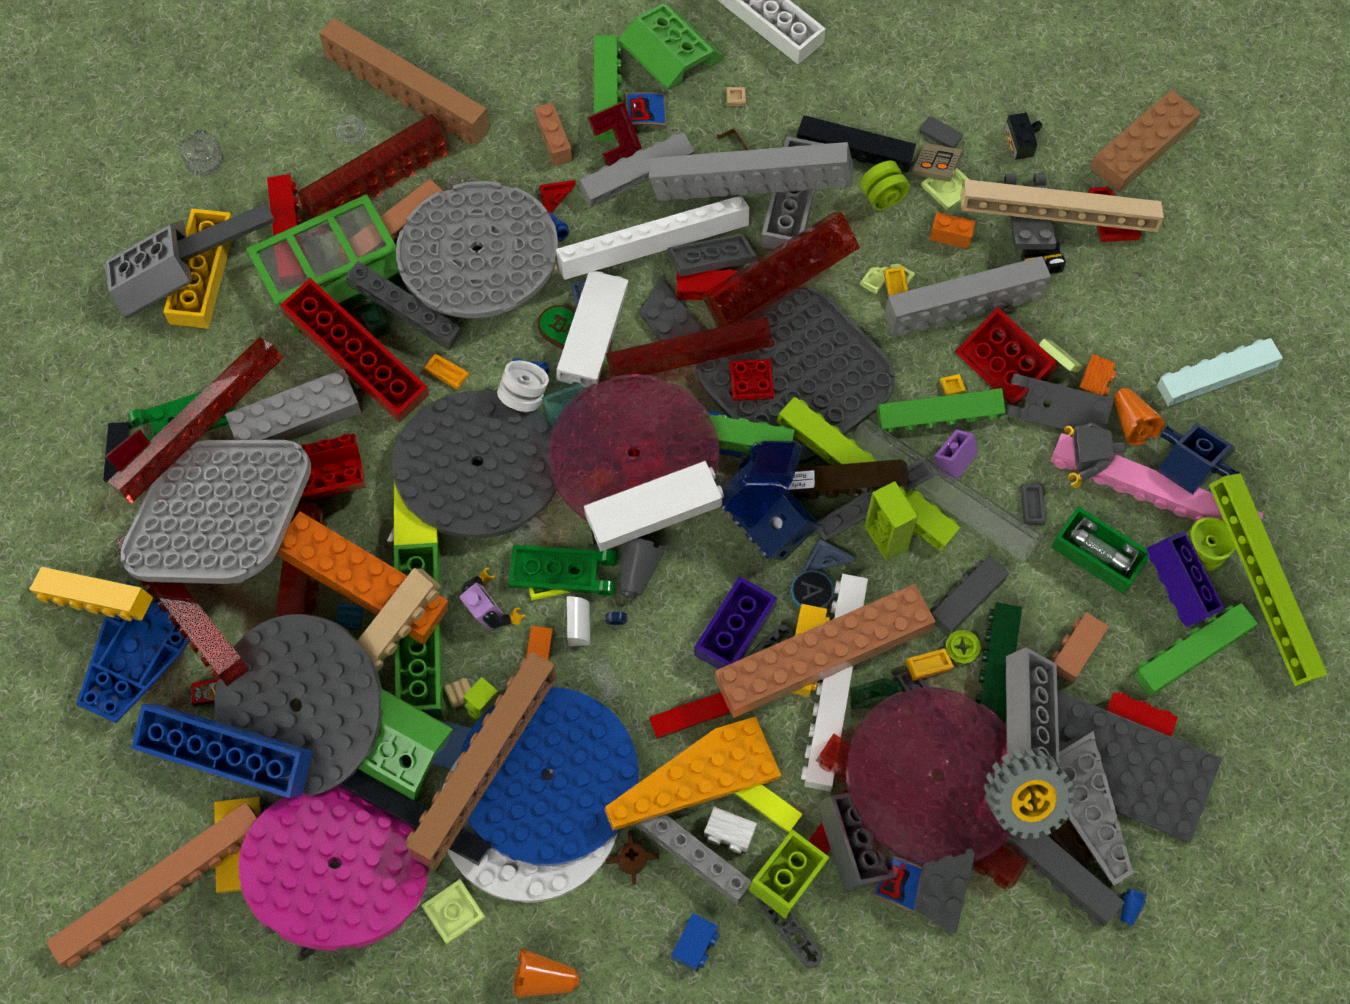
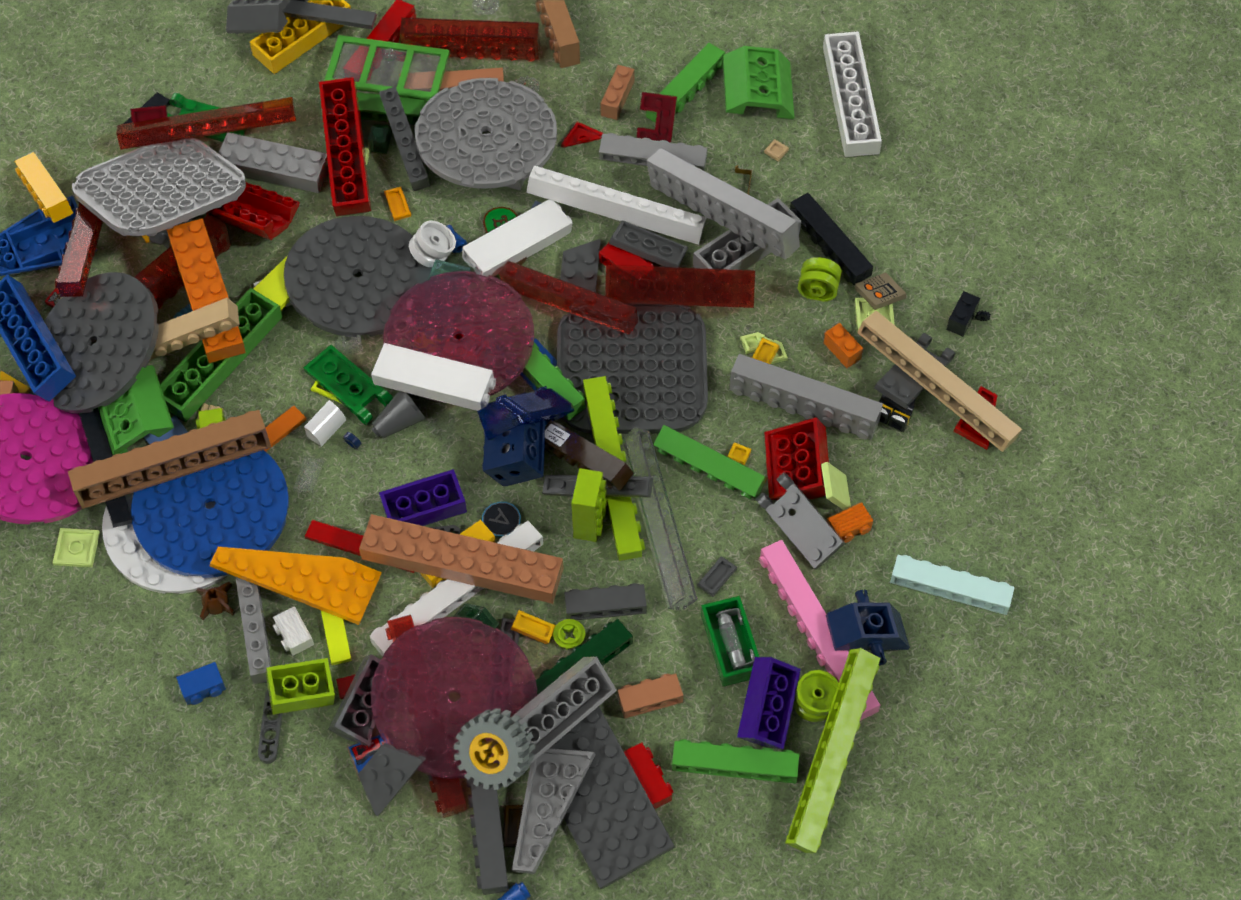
camera: 40 degrees right, 5 degrees down
(484, 606) = (273, 368): torso -> none
(542, 976) = (86, 626): orange cone -> none
(561, 227) = (560, 157): blue cone -> none
(646, 109) = (700, 118): slope -> none
(751, 380) = (593, 348): red tile -> none
(826, 556) = (533, 504): sand blue tile -> none
(941, 133) = (906, 273): dark grey tile -> none
(957, 453) = (690, 499): medium lavender brick -> none
(1092, 450) = (788, 566): dark grey torso -> none
(1137, 417) = (851, 570): orange cone -> none
(1145, 140) = (1060, 380): medium nougat brick -> none

